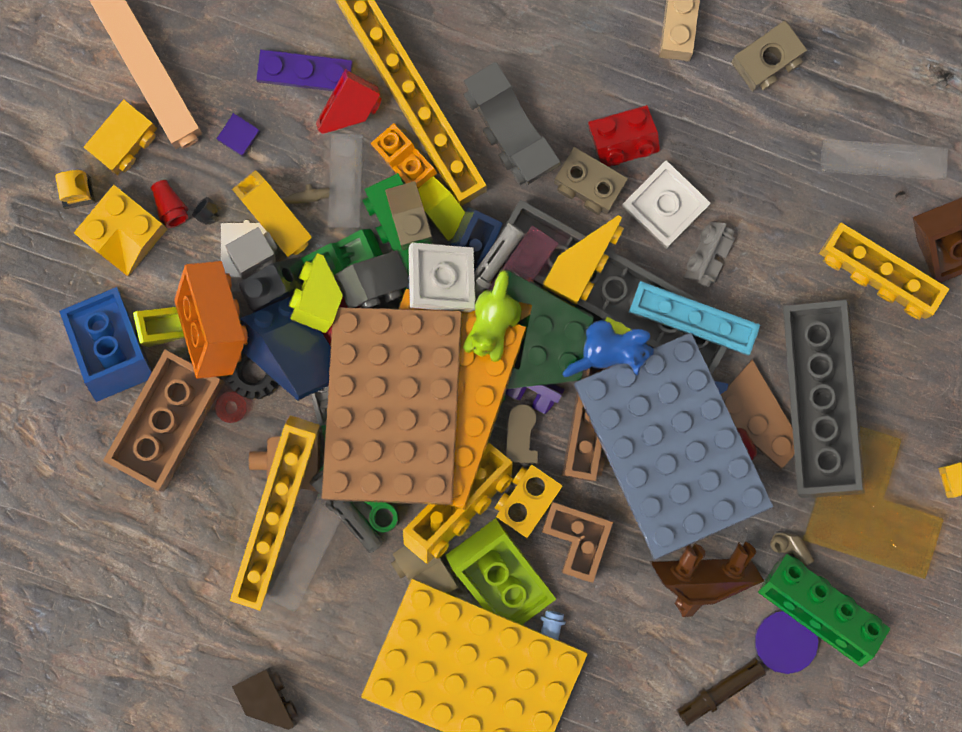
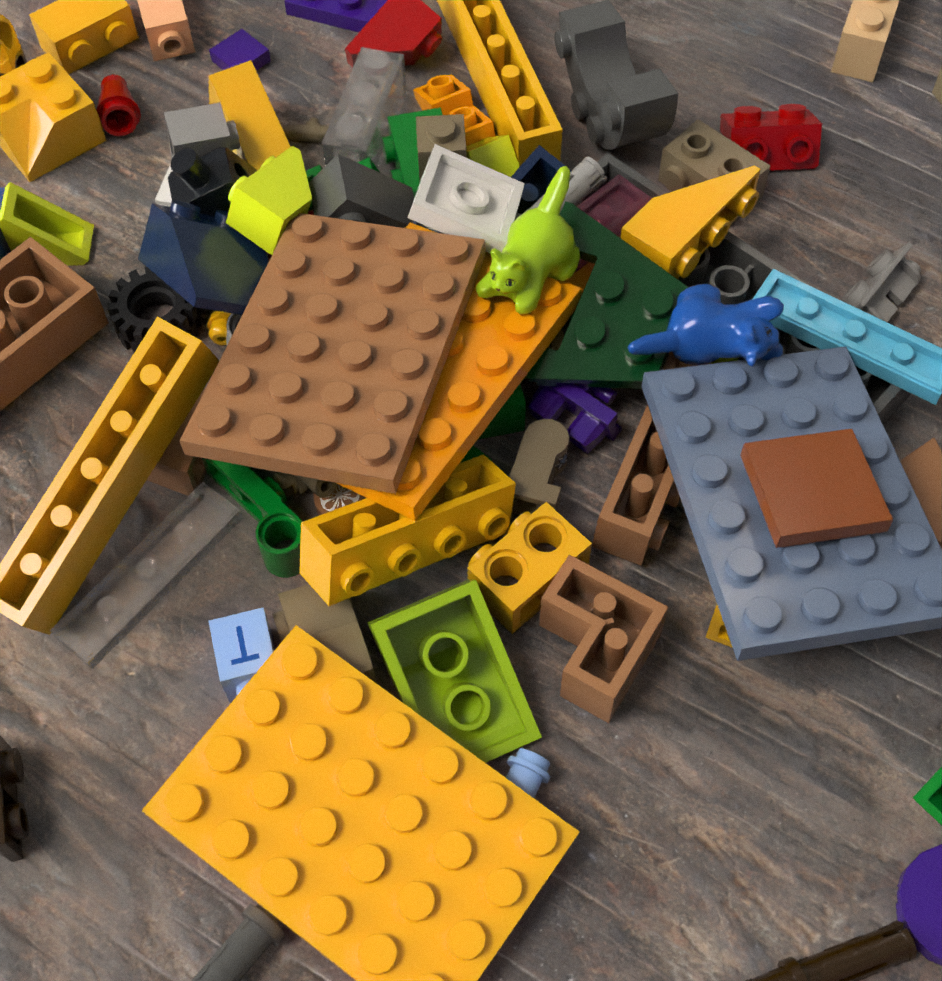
camera: 10 degrees right, 25 degrees down
(205, 211) = (156, 122): black hinge -> none
(210, 319) = (110, 209): orange brick -> none
(223, 400) = (98, 344): clear red plate -> none
(351, 518) = (230, 528): dark grey pin -> none
(383, 591) = (240, 648): none -> light blue brick
(666, 204) = (820, 220): white plate -> none
(682, 451) = (815, 488): none -> dark orange tile
(710, 580) = (817, 749): reddish brown connector -> none

